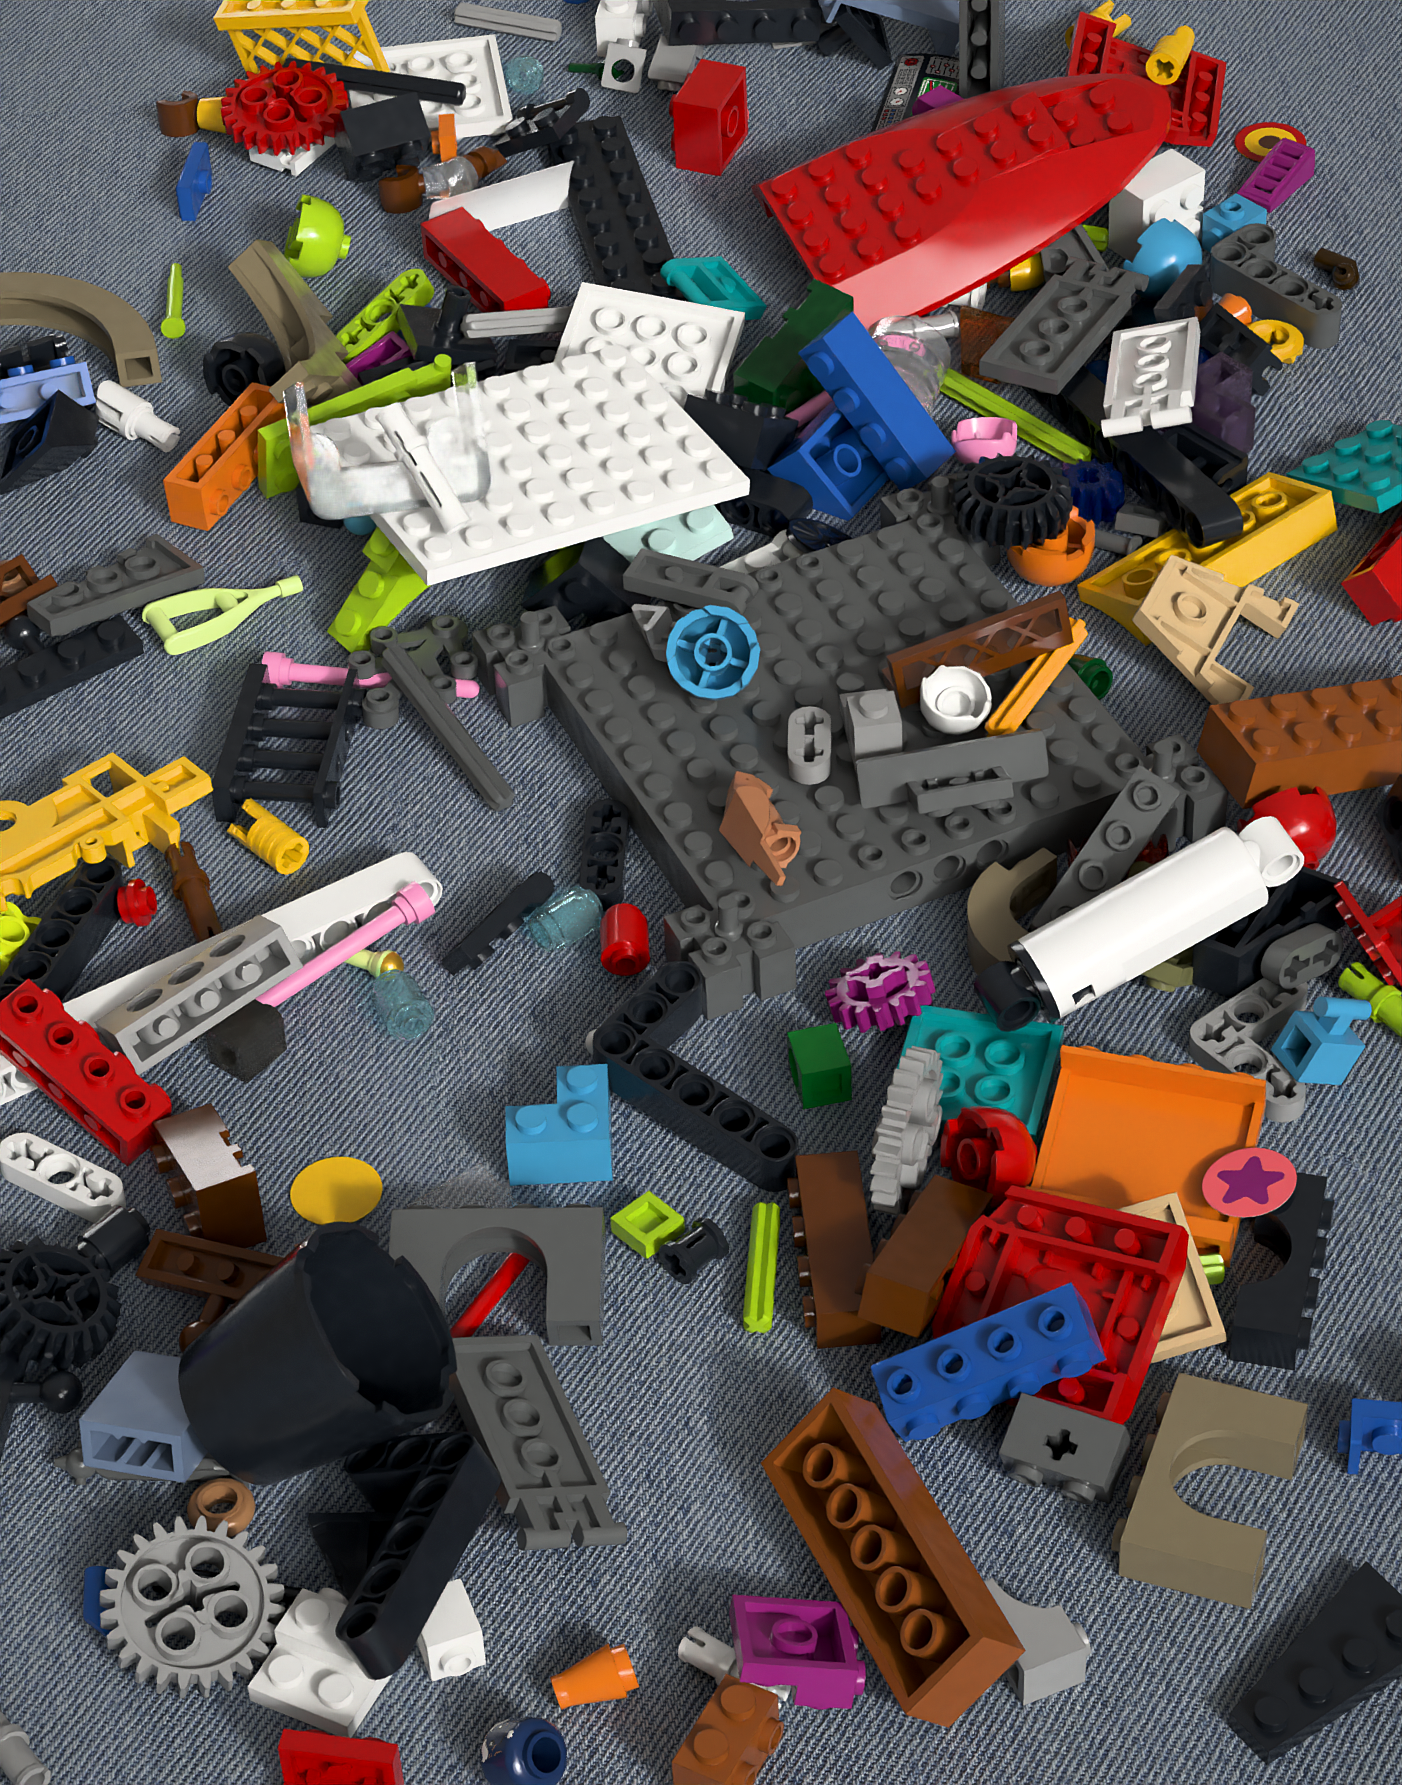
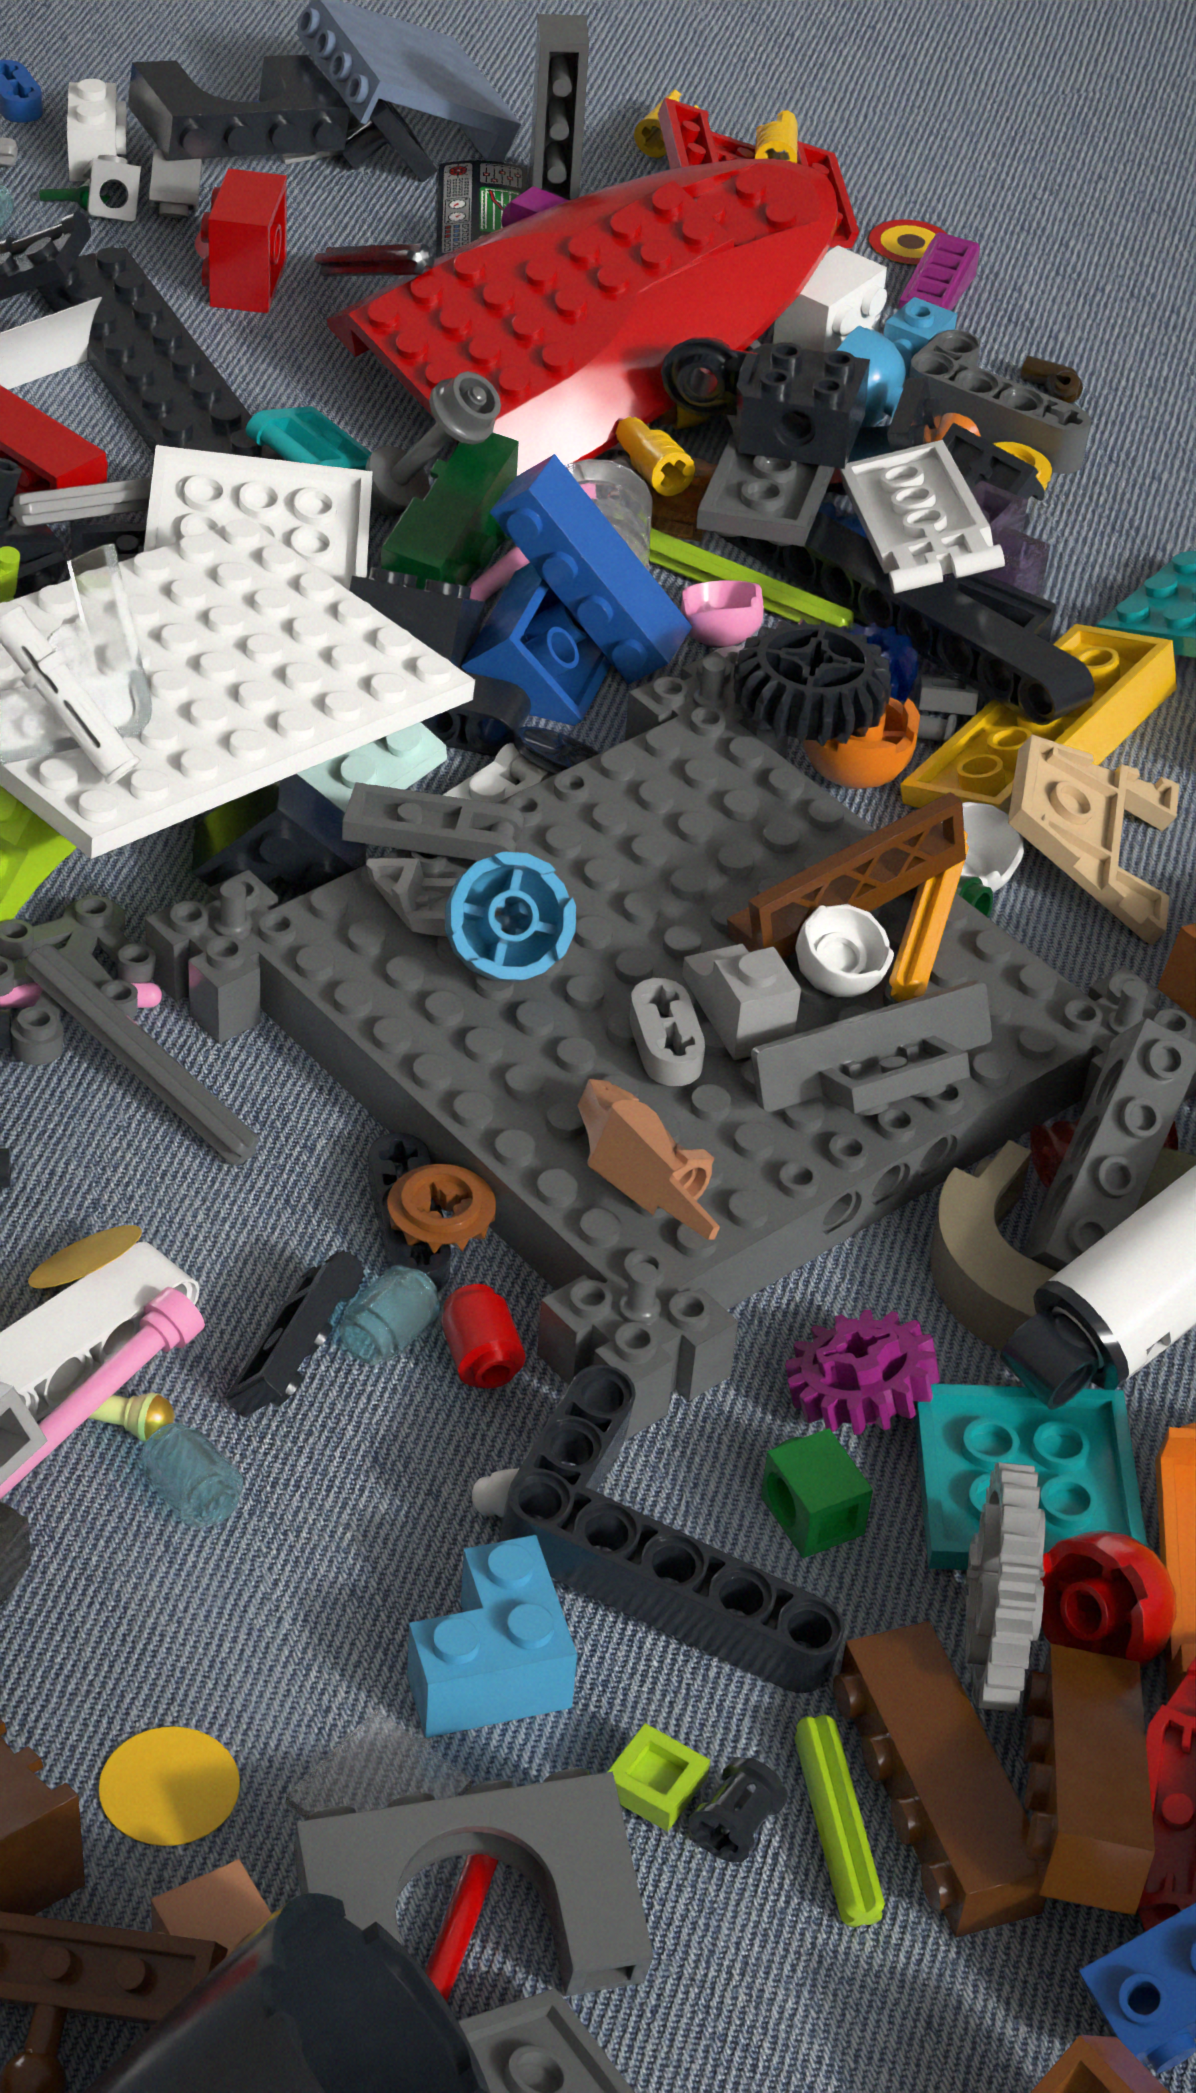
camera: 20 degrees left, 0 degrees up
(371, 858) = (85, 1256): none -> yellow sticker
(636, 841) = (452, 1189): none -> dark orange gear
(798, 140) = (374, 260): none -> axle
(808, 272) = (463, 410): none -> dark grey piece
(972, 315) = (656, 456): none -> yellow hinge
(1069, 274) = (783, 396): none -> black brick
(1113, 637) = (992, 843): none -> white hair

